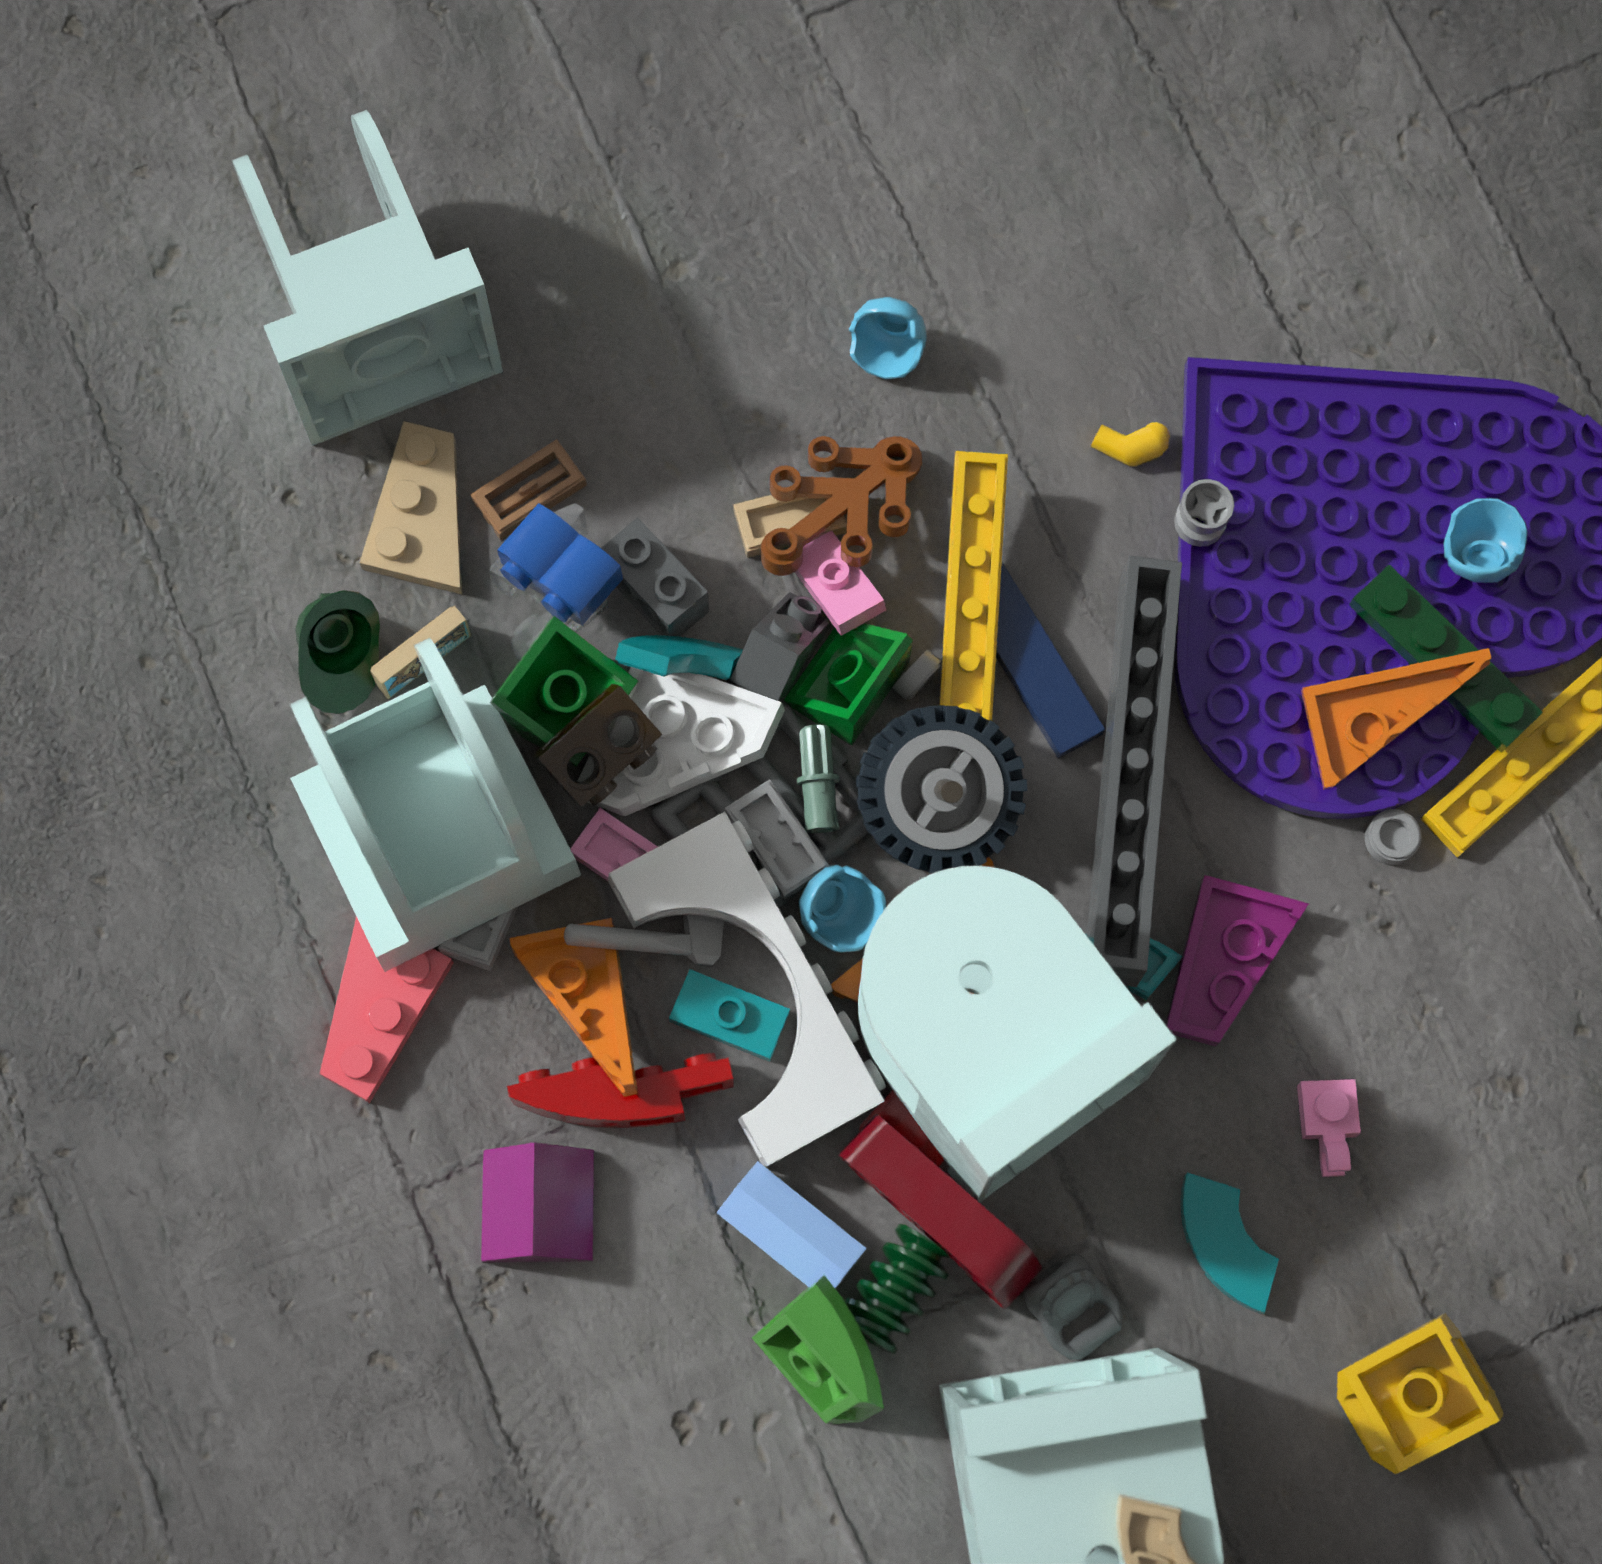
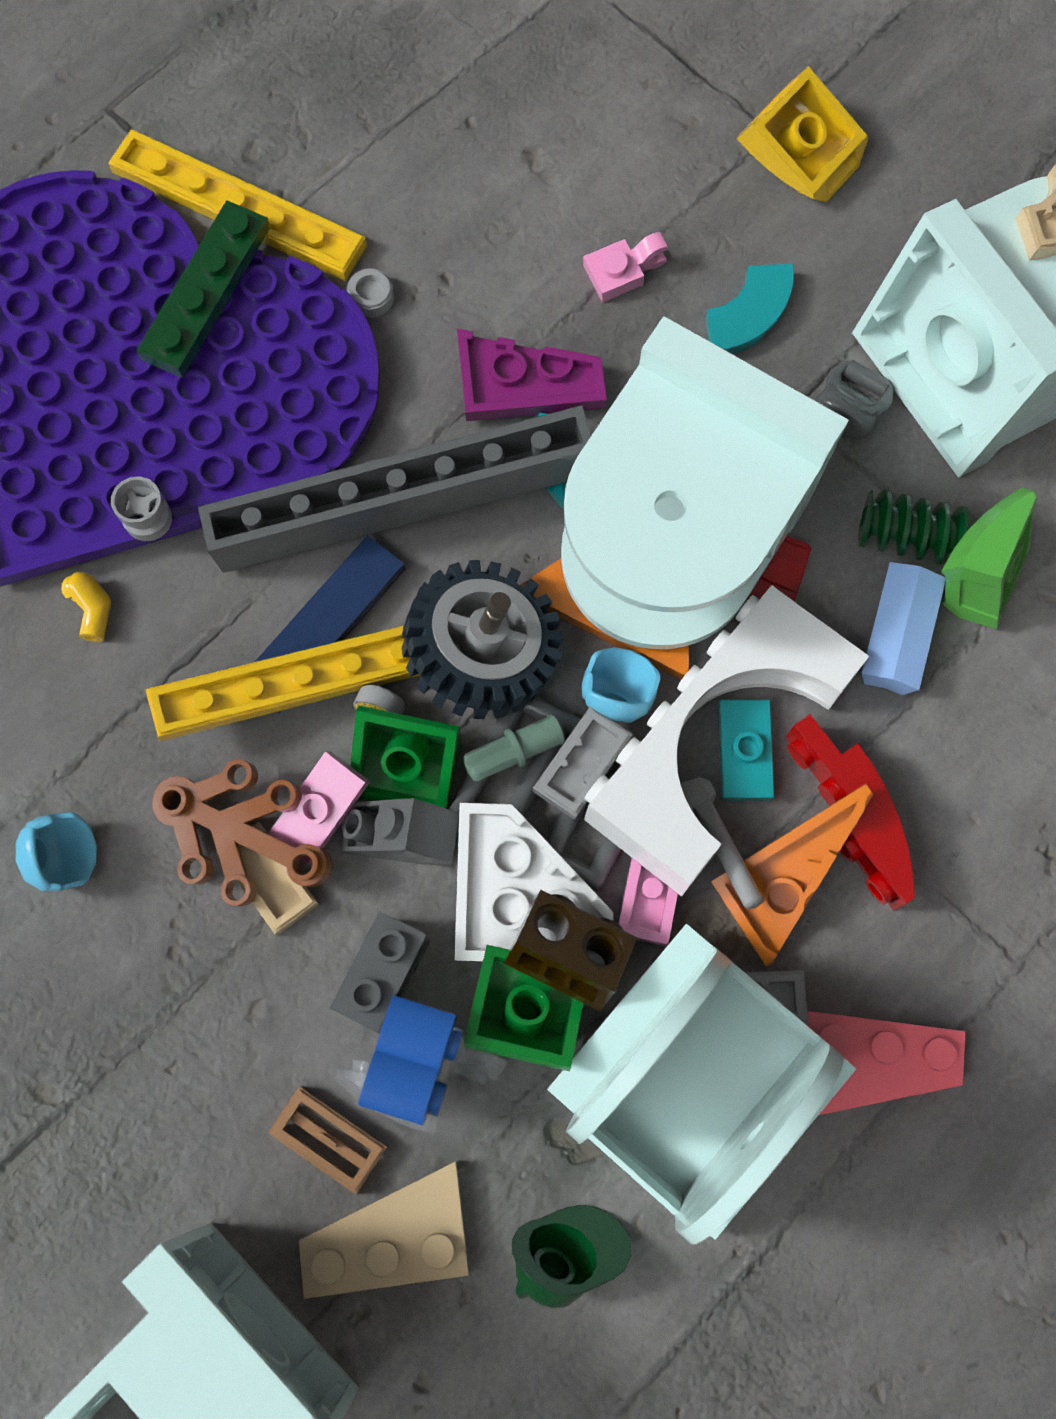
camera: 110 degrees left, 0 degrees up
(403, 664) = (536, 1171): tan tile -> none
(538, 1204) = (980, 844): magenta slope -> none
(678, 654) = (446, 917): teal tile -> none
(942, 1211) = (837, 515): dark red beam -> none
(1366, 712) = (278, 326): orange wing -> none
(1485, 540) = (89, 278): medium azure hair -> none

